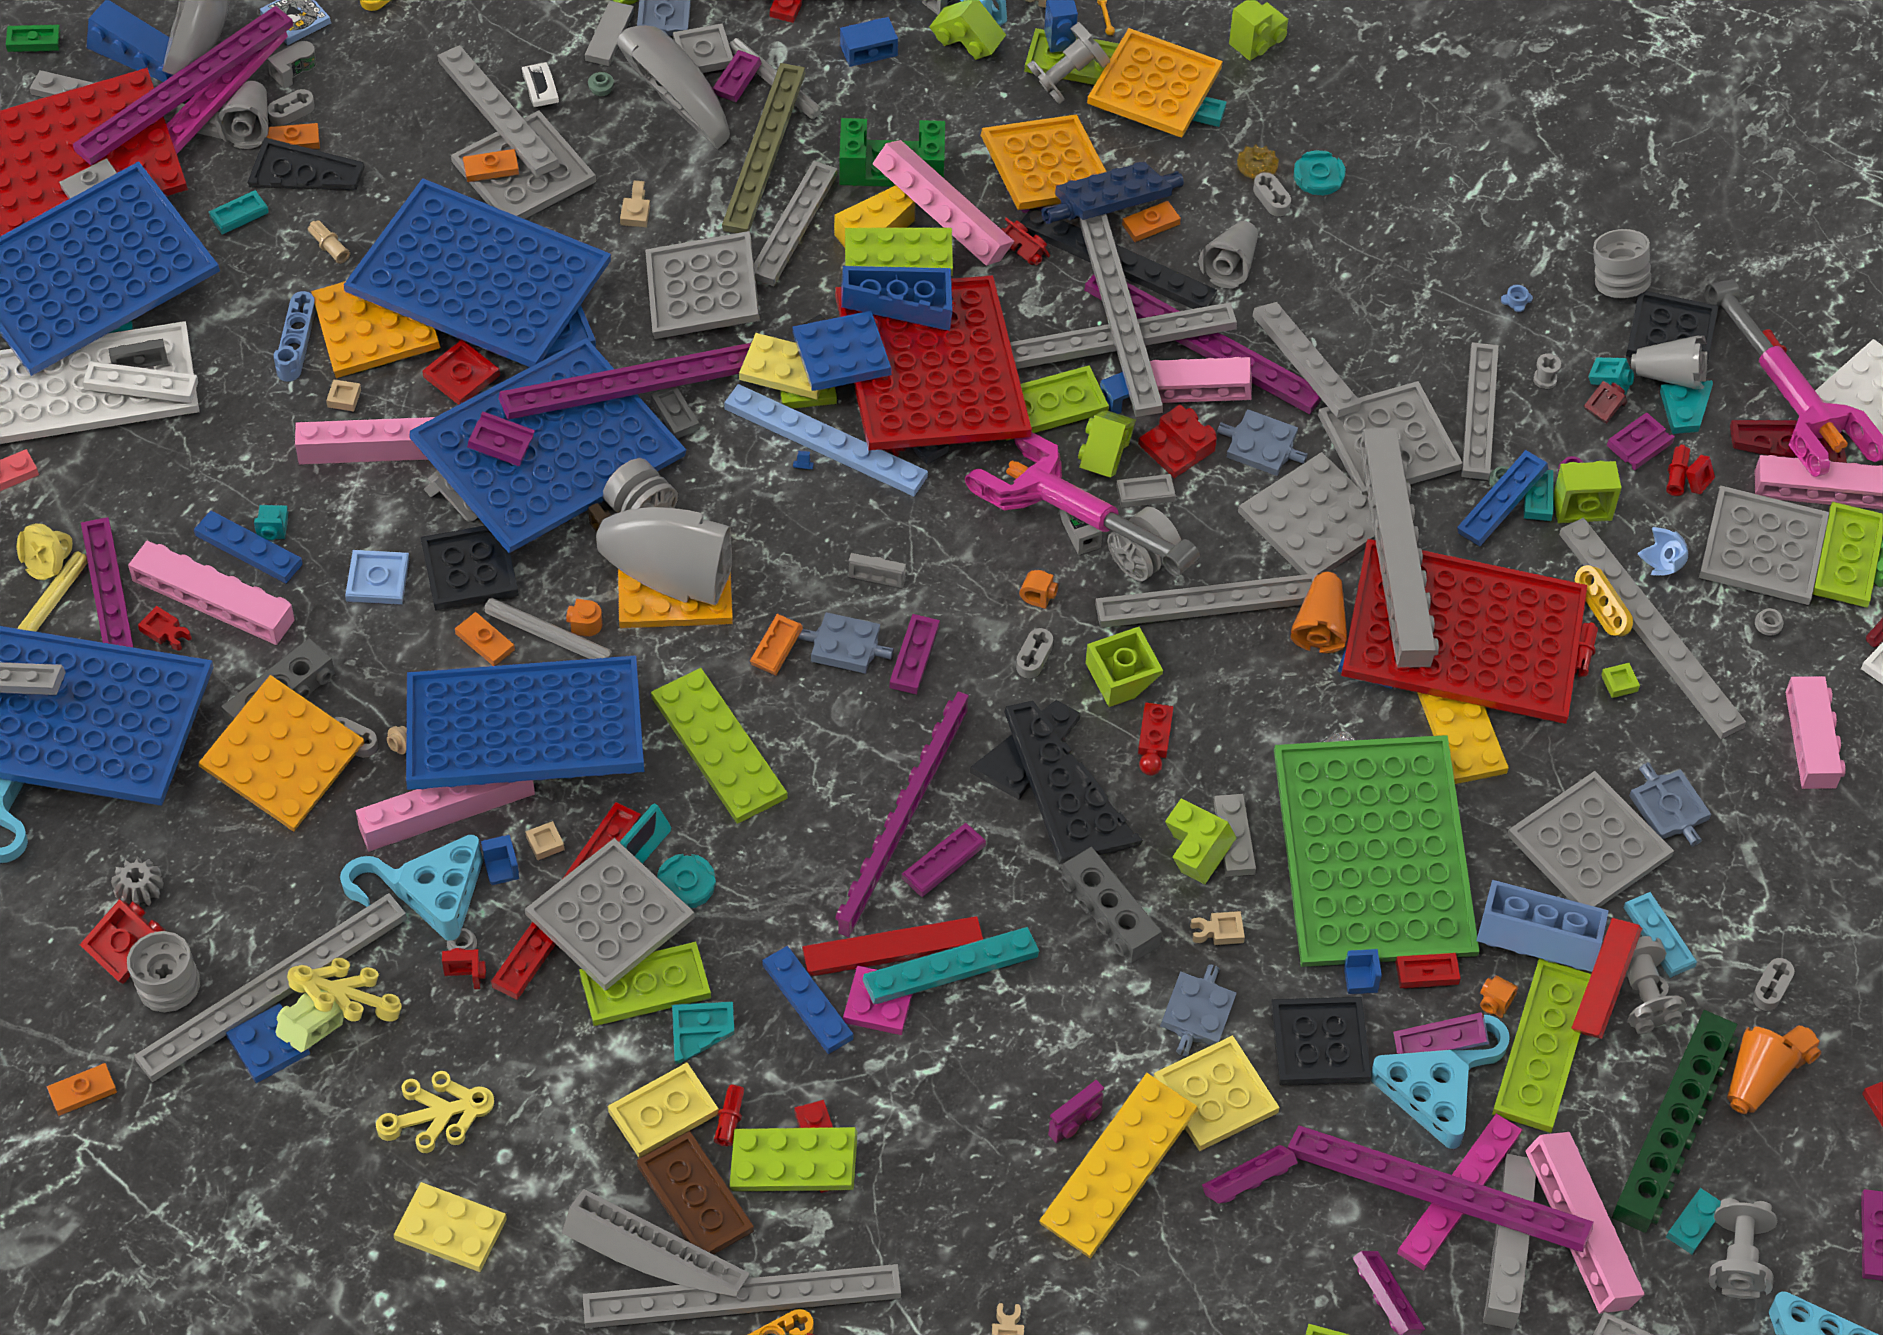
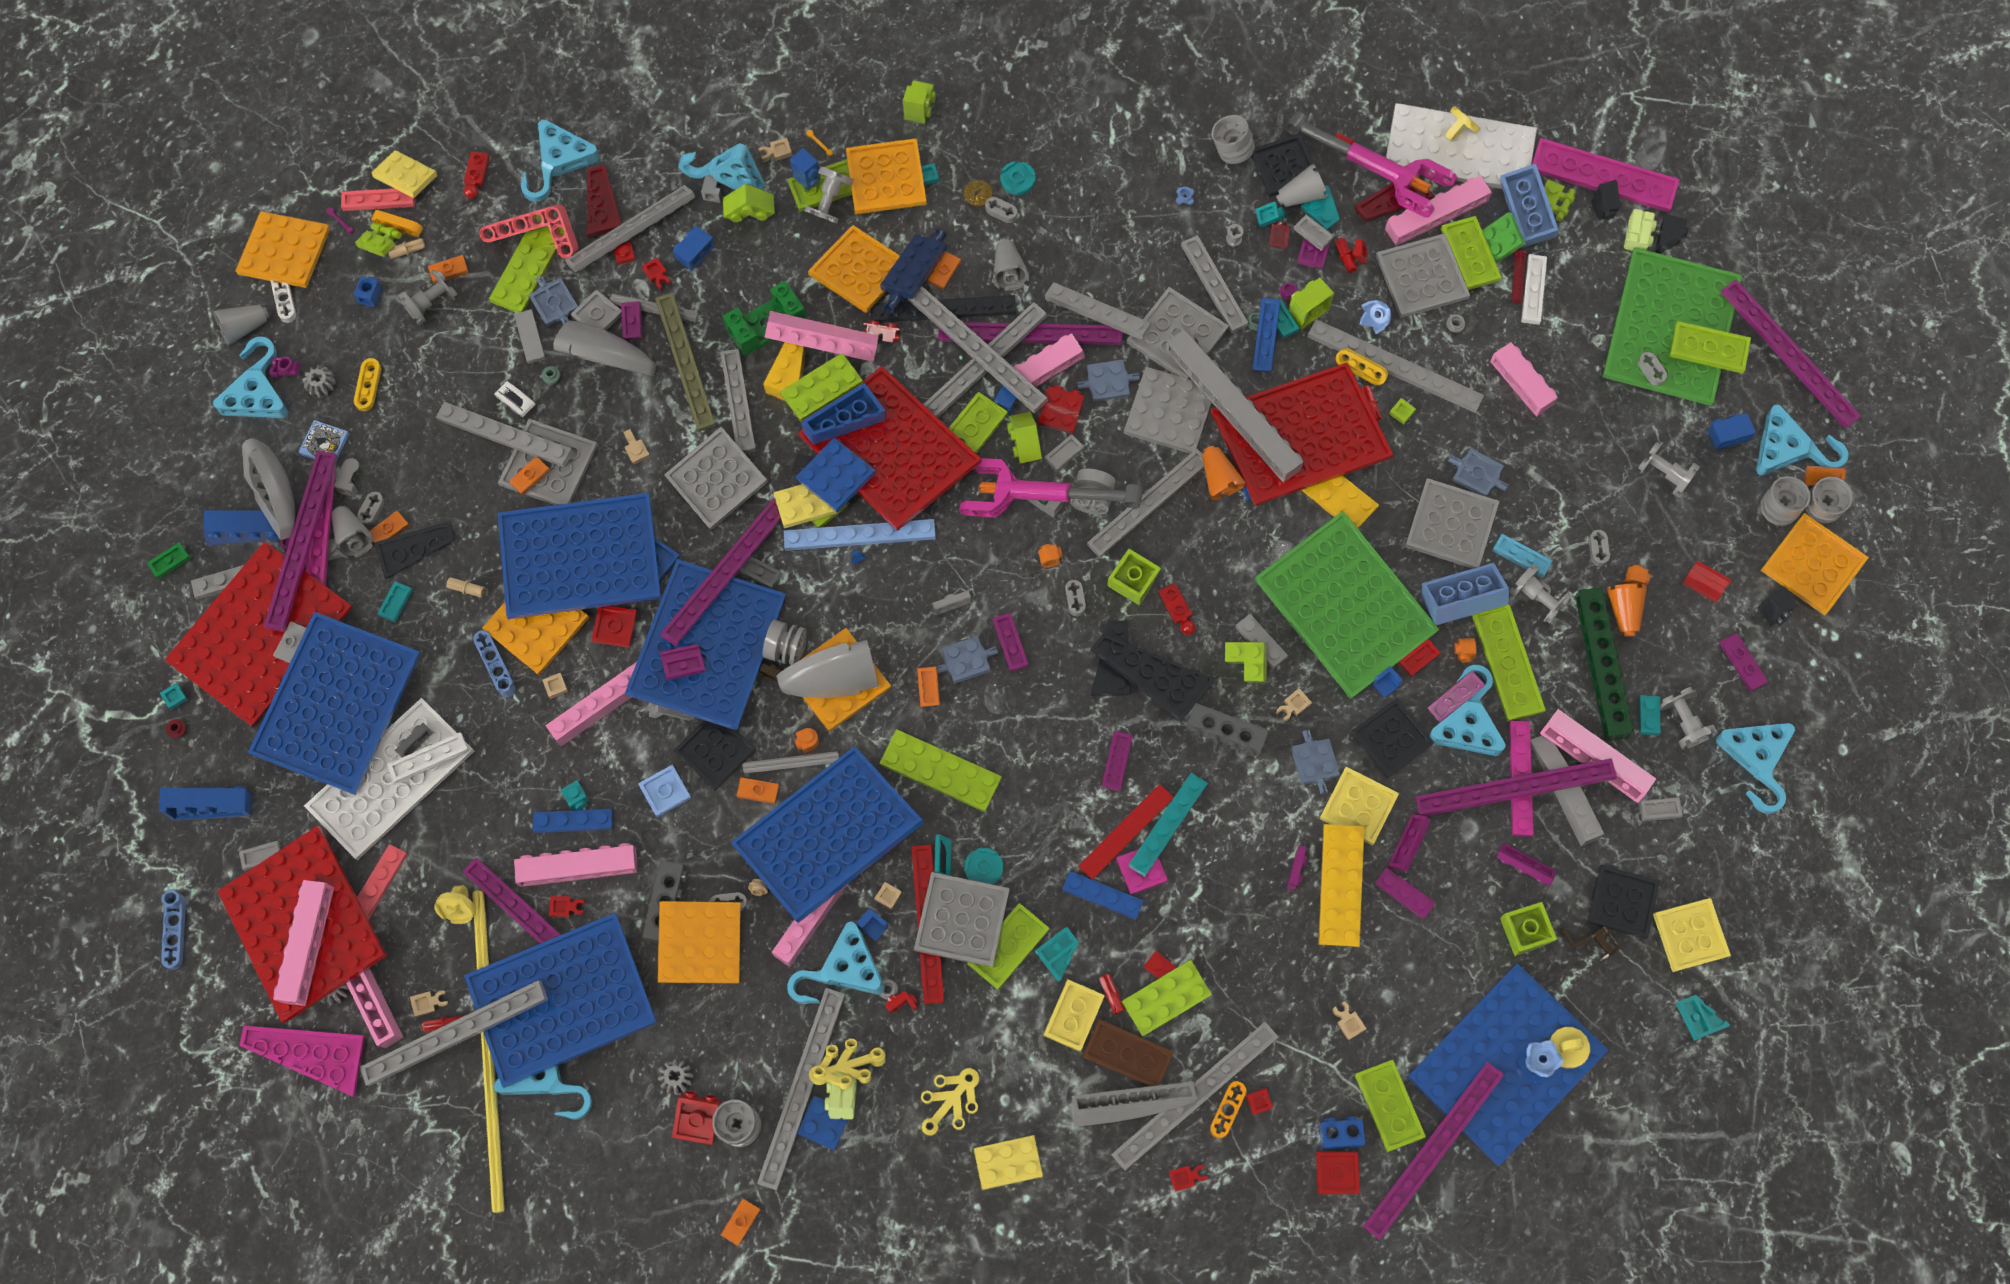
camera: 30 degrees left, 15 degrees up
(805, 44) = (656, 272): none -> red plate
(897, 821) = (1076, 754): magenta plate -> none
(1199, 1232) = (1404, 893): none -> magenta plate
(1607, 978) = (1522, 606): red tile -> none
(1651, 417) = (1313, 232): none -> light grey plate

